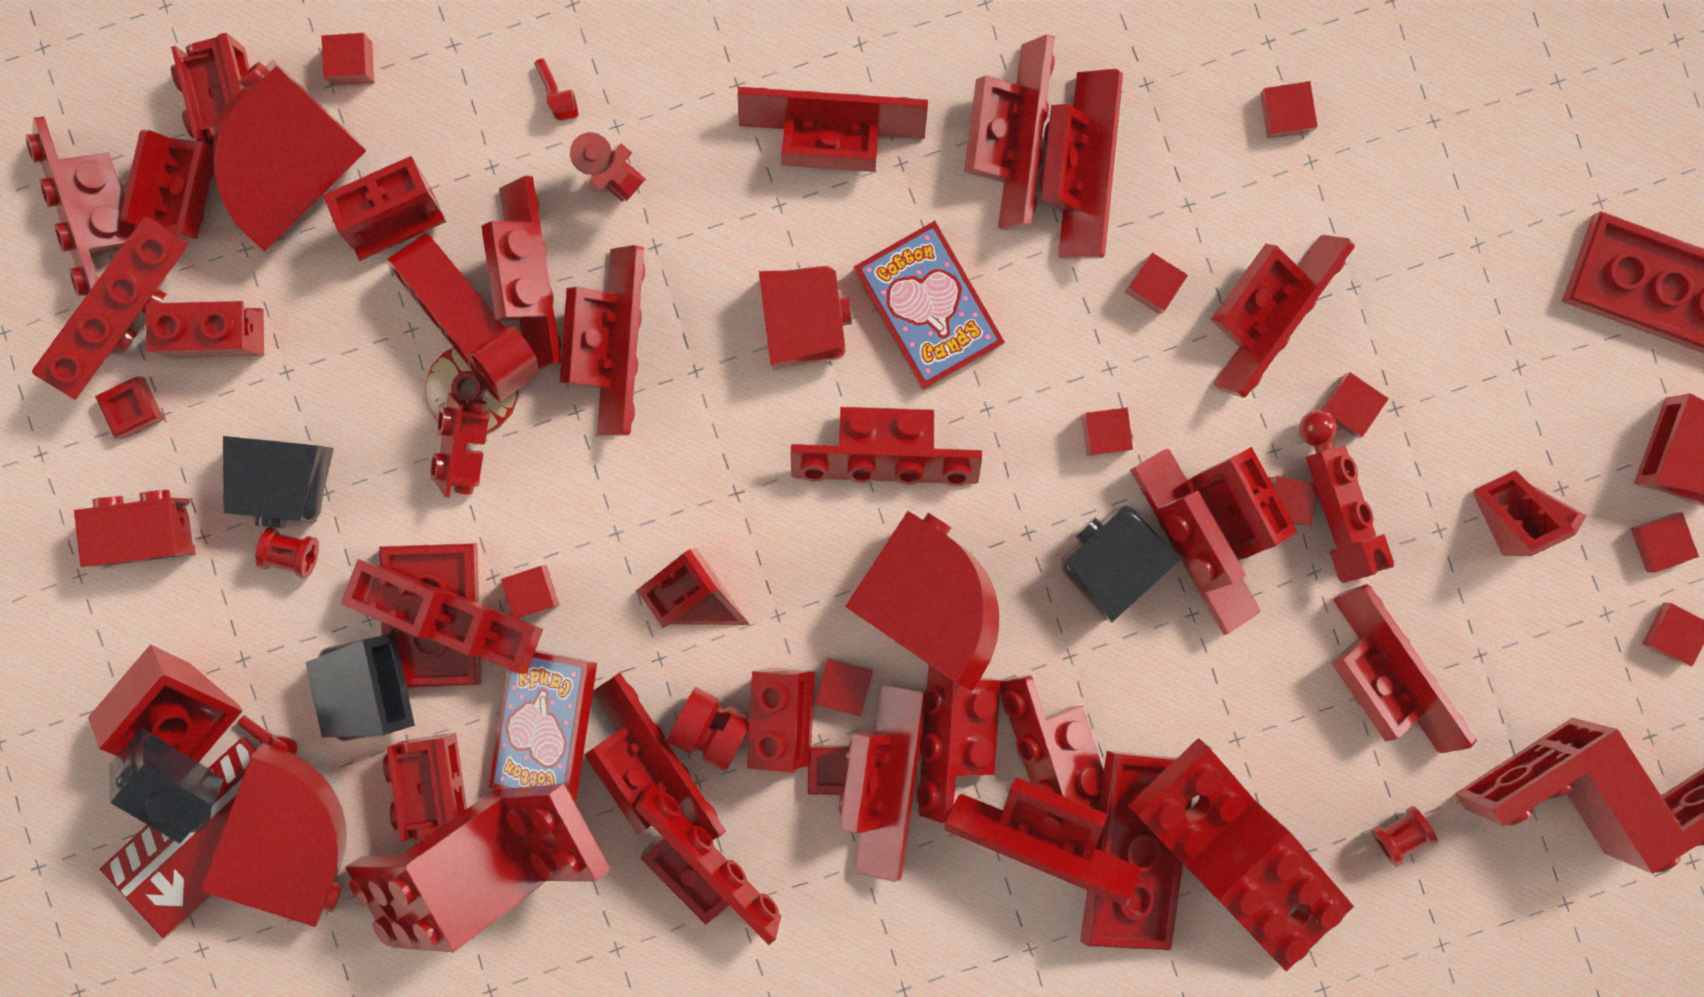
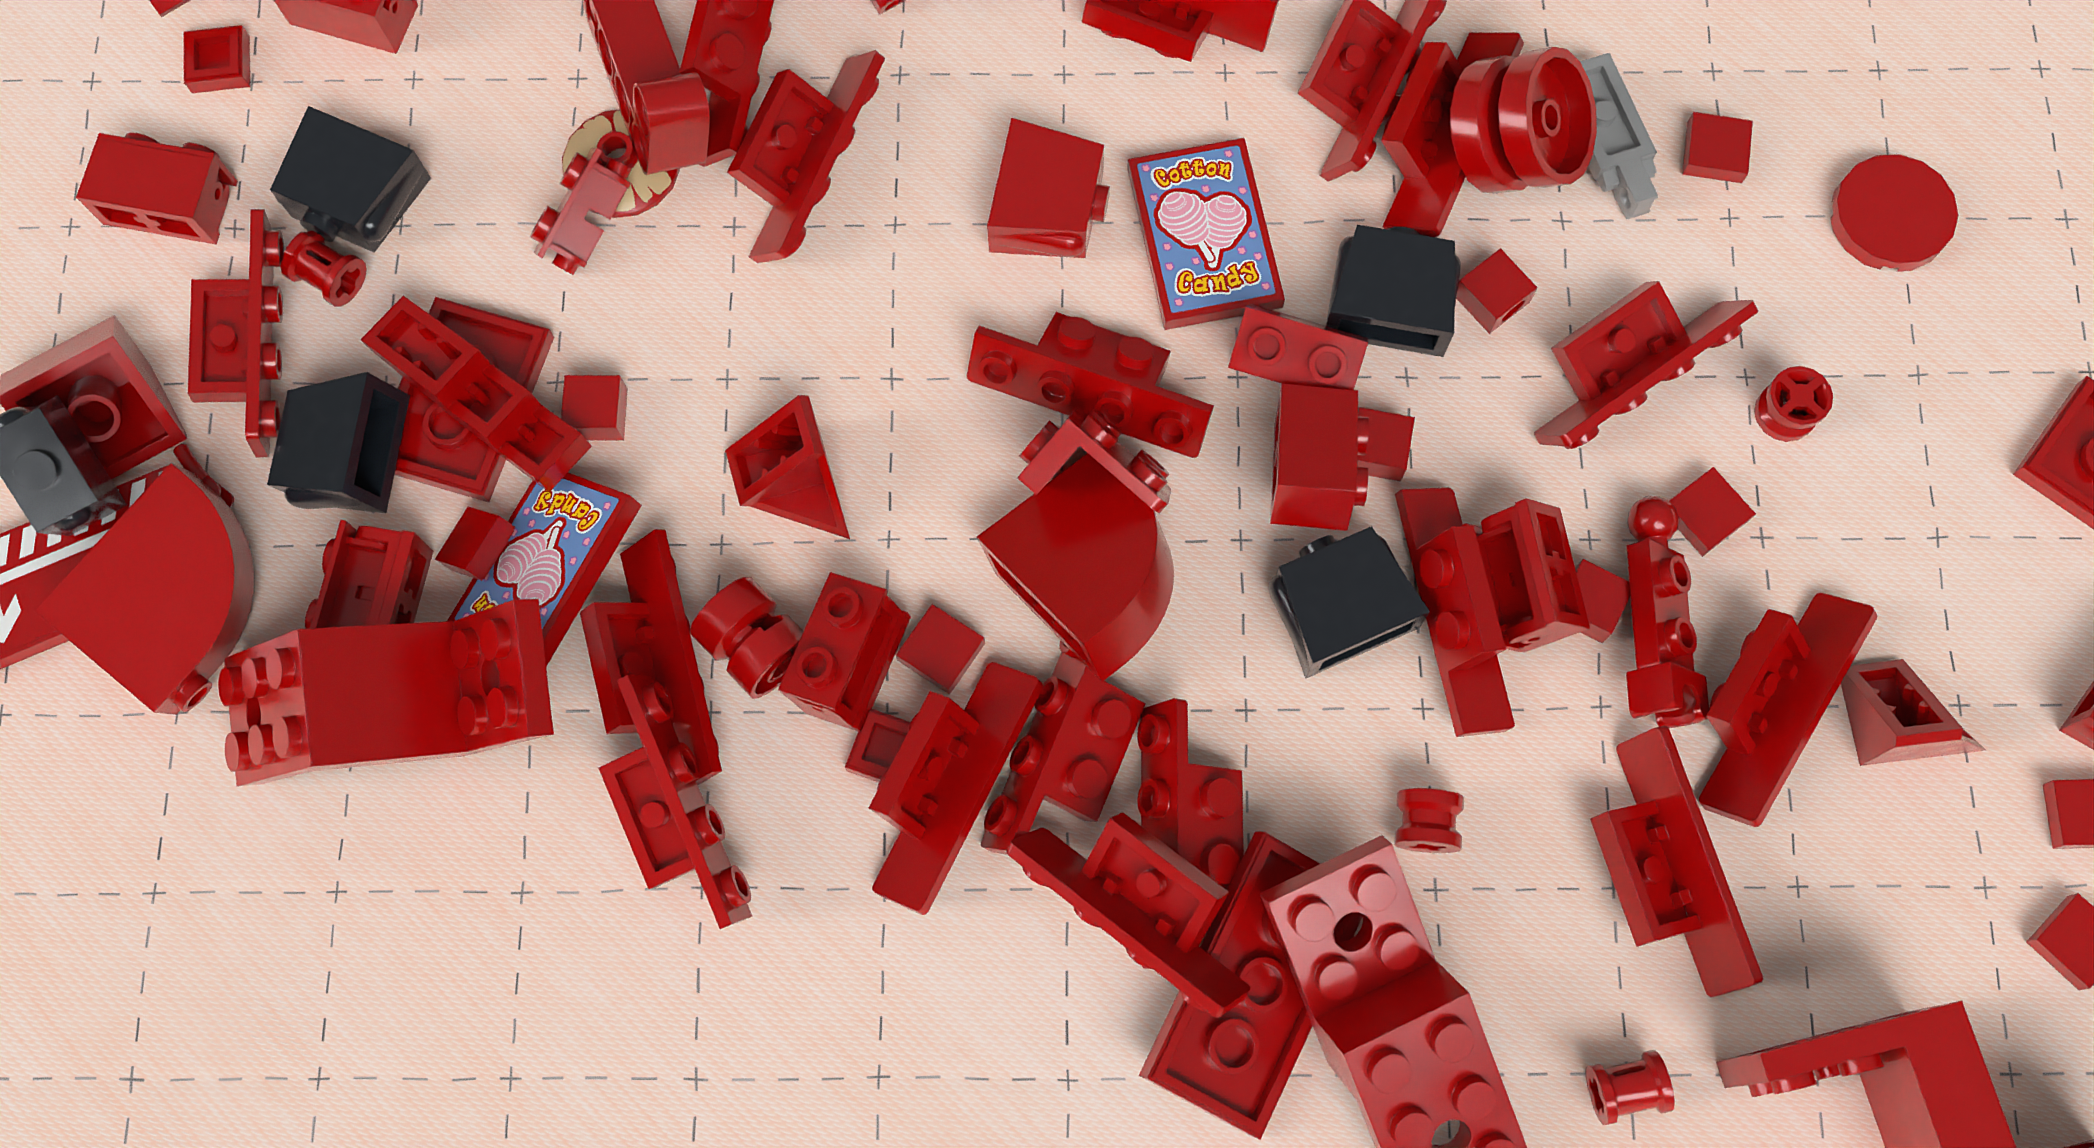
camera: 15 degrees right, 15 degrees down
(244, 627) = (232, 337): none -> red bracket
(486, 723) = (475, 543): none -> red tile
(905, 511) = (1099, 439): none -> red bracket
(1031, 387) = (1296, 350): none -> red hinge
(1070, 471) = (1317, 457): none -> red brick
(1083, 309) = (1396, 289): none -> black torso
(1145, 152) = (1524, 121): none -> red wheel
(1204, 124) = (1622, 144): none -> light grey hinge
(1221, 700) = (1429, 820): none -> red wheel
(1405, 299) = (1801, 390): none -> red wheel
(1432, 121) = (1894, 212): none -> red tile
(1440, 534) = (1777, 701): none -> red bracket

